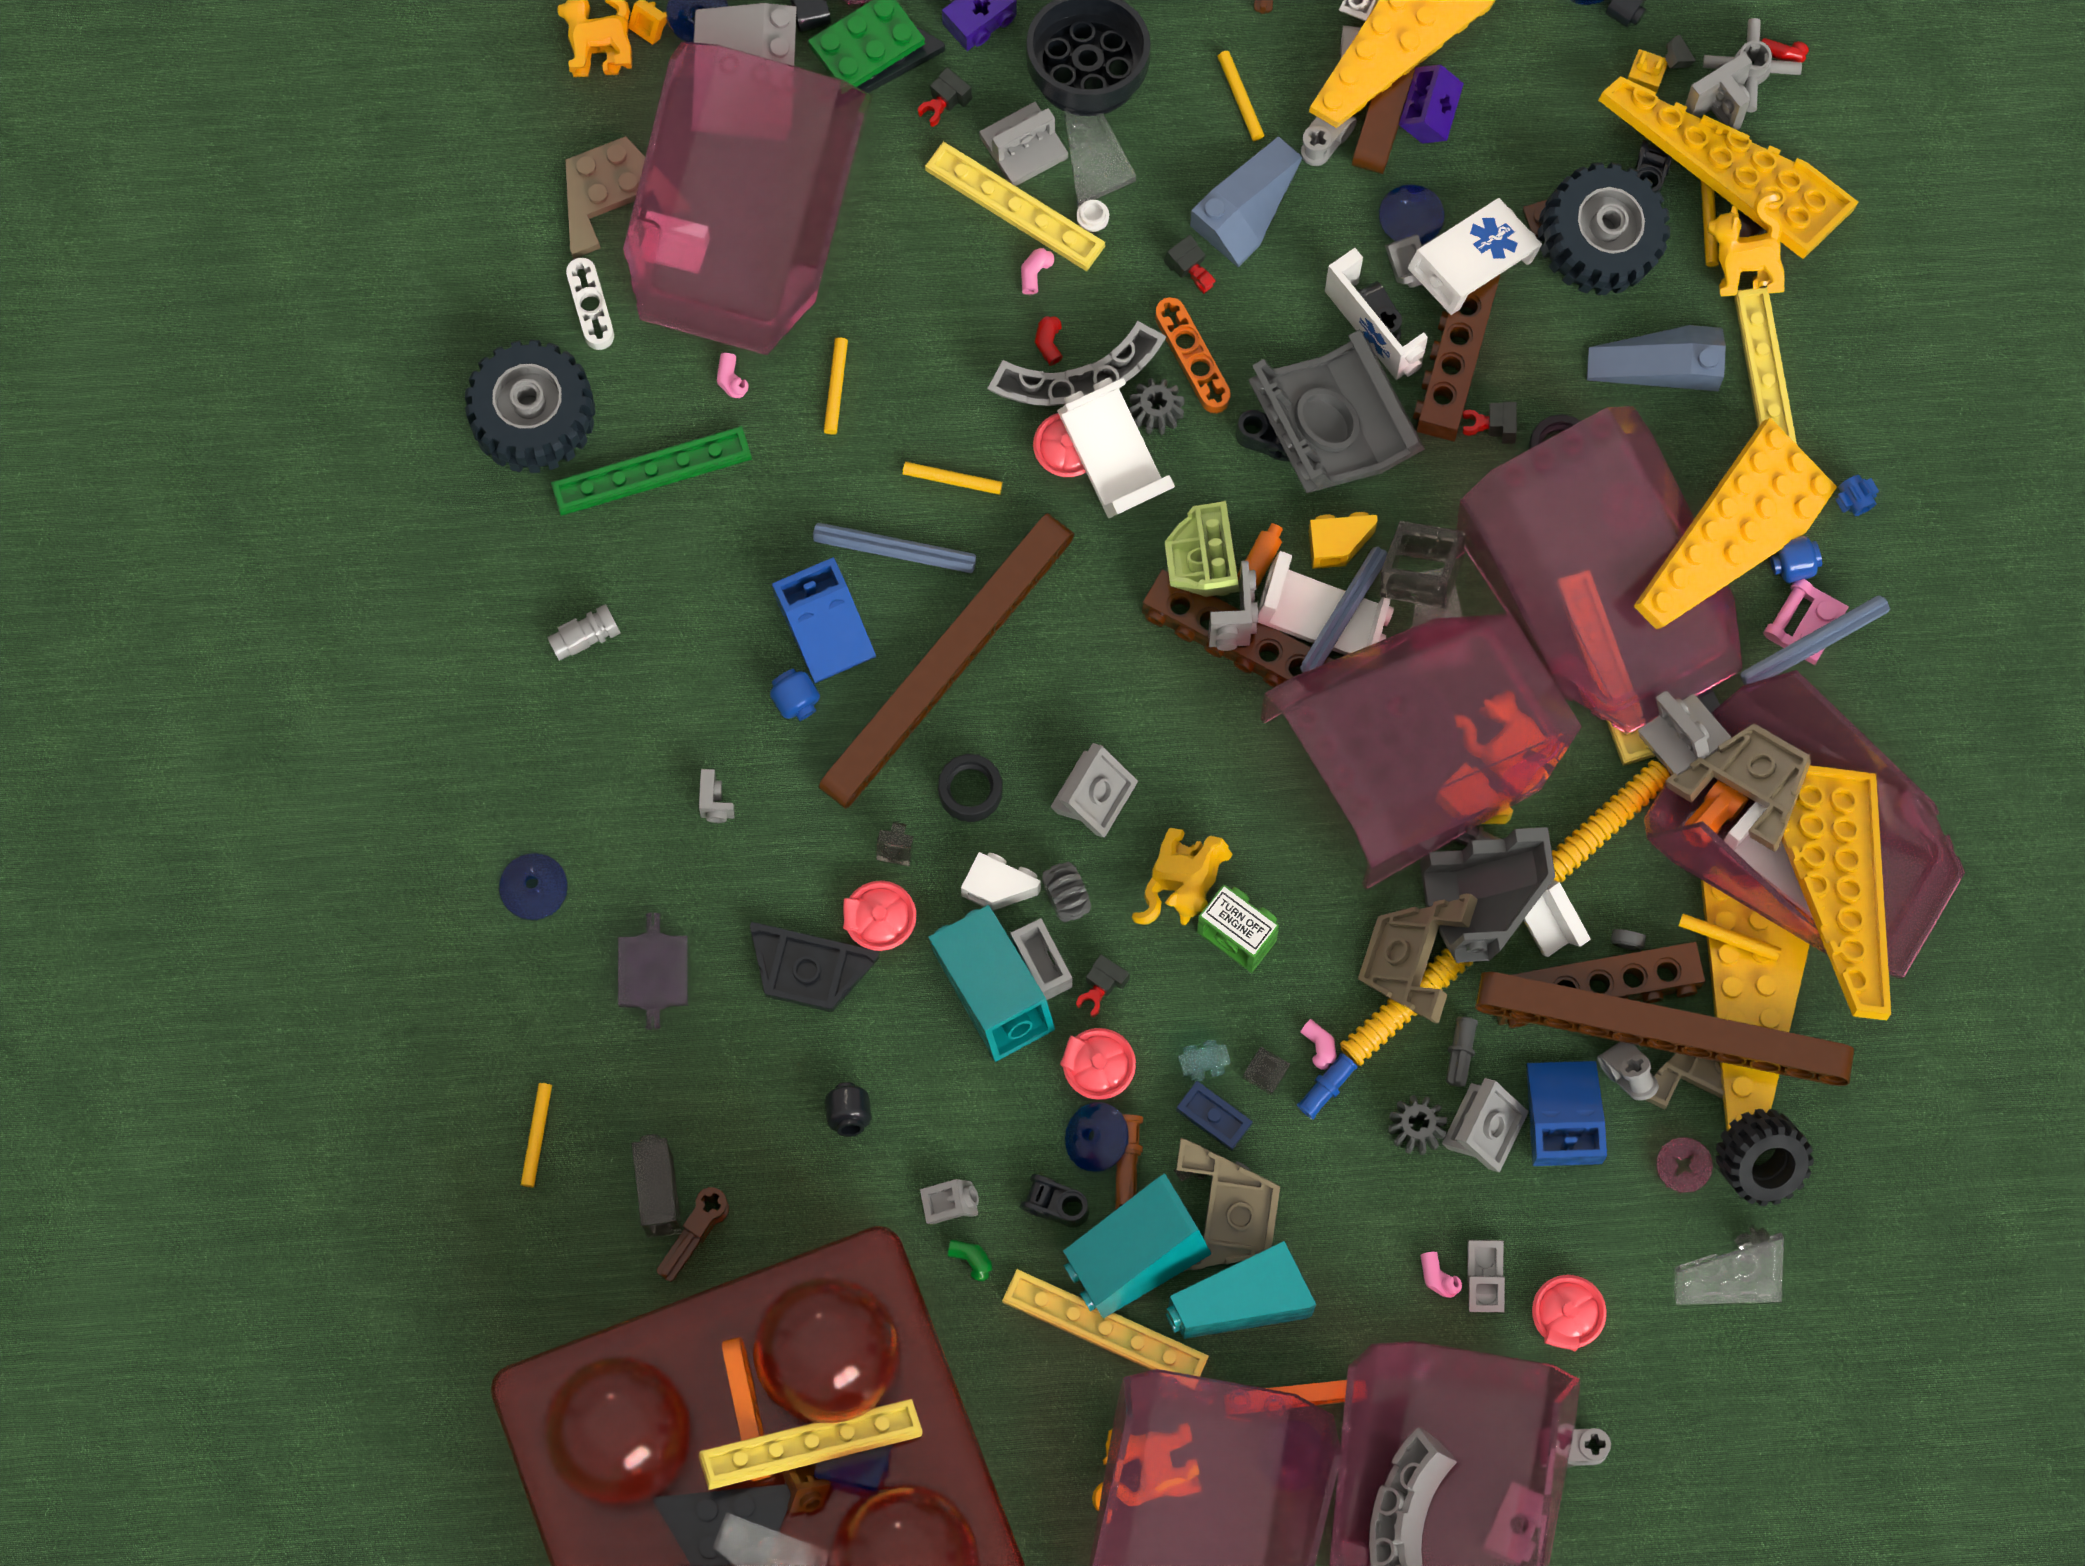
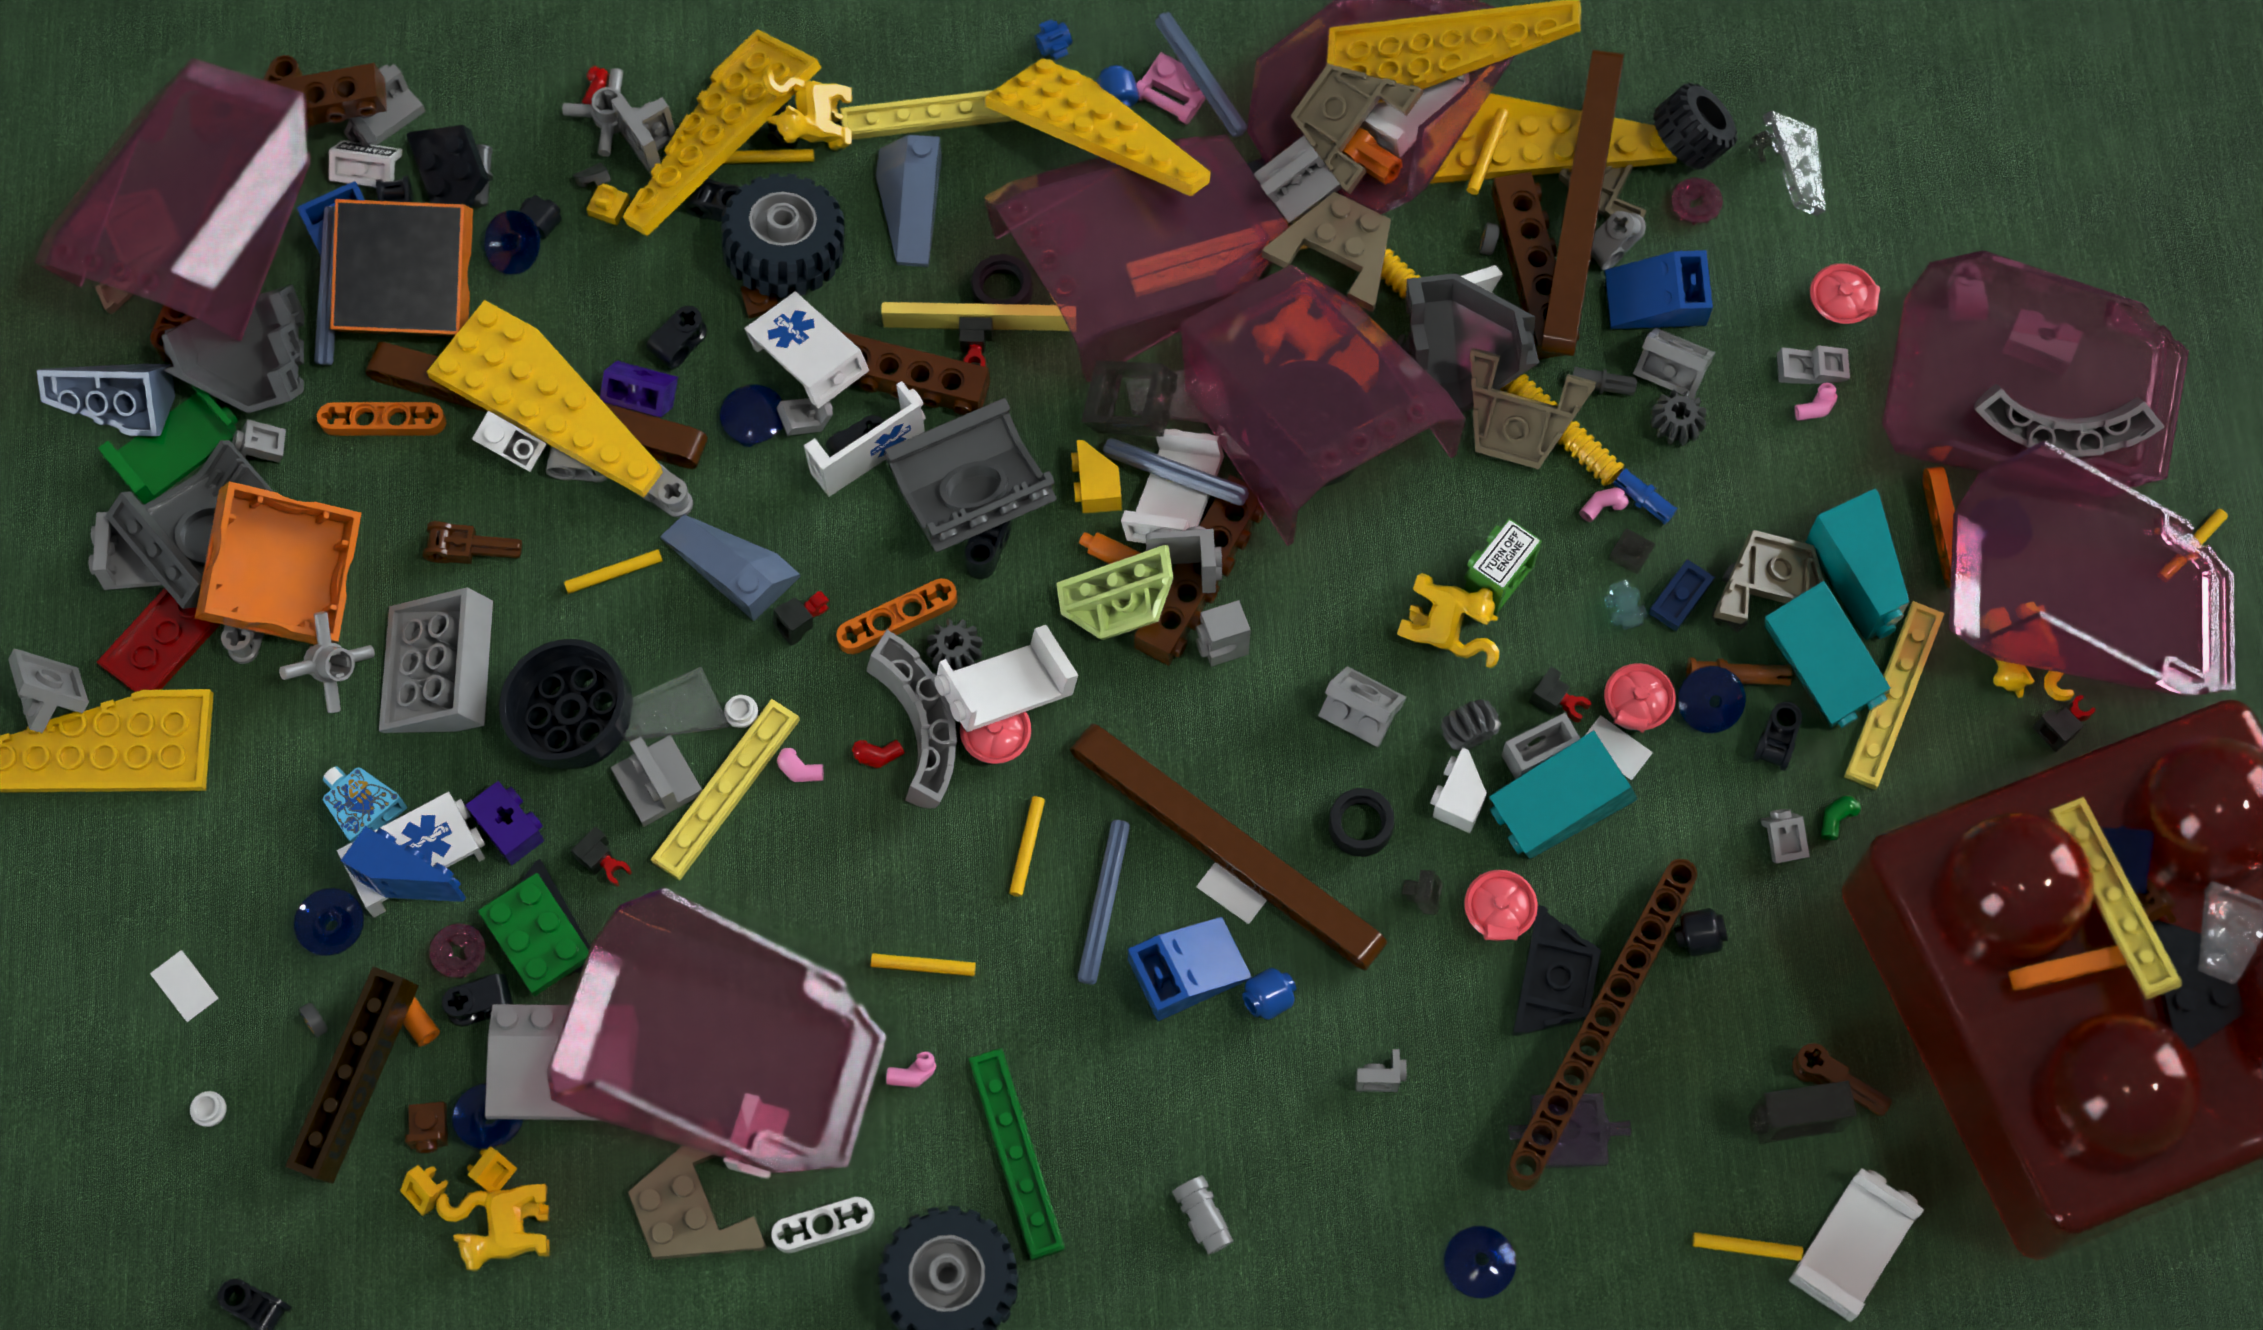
camera: 90 degrees left, 5 degrees down
(531, 1236) = (1856, 1243): none -> white panel
(745, 988) = (1598, 1036): none -> reddish brown beam
(900, 666) = (1231, 893): none -> white sticker
(1047, 1052) = (1624, 750): none -> white sticker
(1064, 1496) = (2062, 727): none -> pearl dark grey piece
(1164, 654) = (1223, 633): none -> light grey brick
(1493, 140) = (677, 337): none -> black piece
(1523, 389) = (947, 315): none -> light yellow tile
(1620, 784) = (1344, 233): none -> dark tan wing

